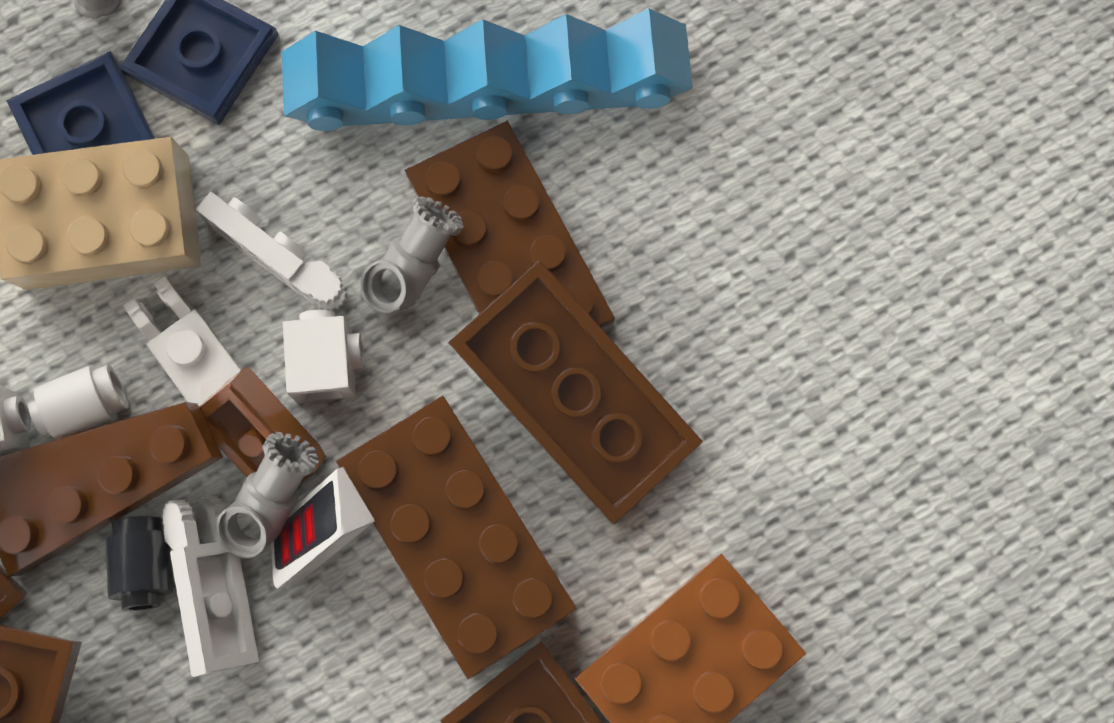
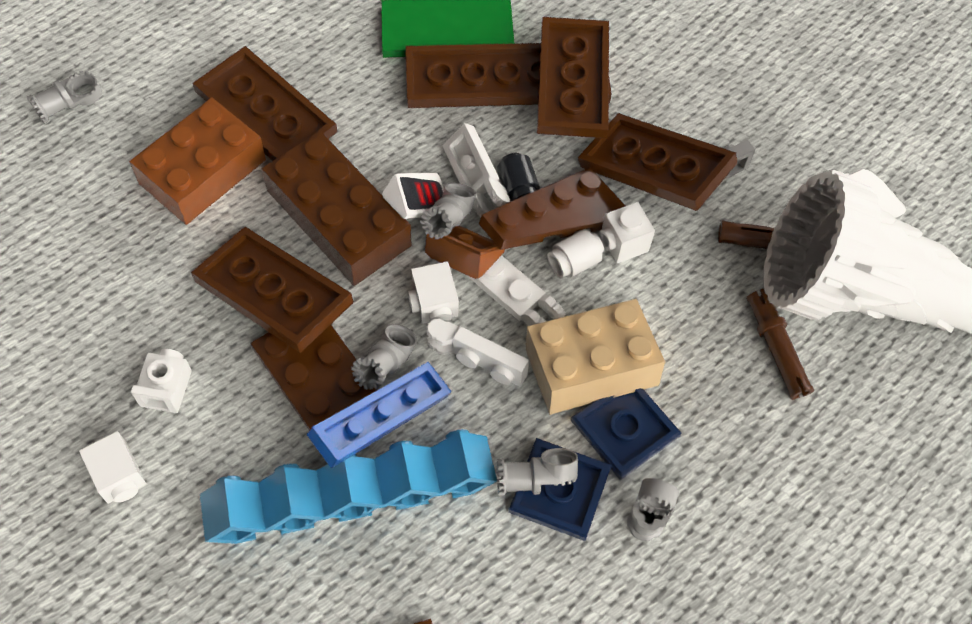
camera: 170 degrees right, 15 degrees down
(224, 47) = (552, 467): none -> light grey connector
(428, 150) = (378, 414): none -> plate
(755, 246) = (166, 391): none -> white brick
(812, 145) = (113, 468): none -> white brick

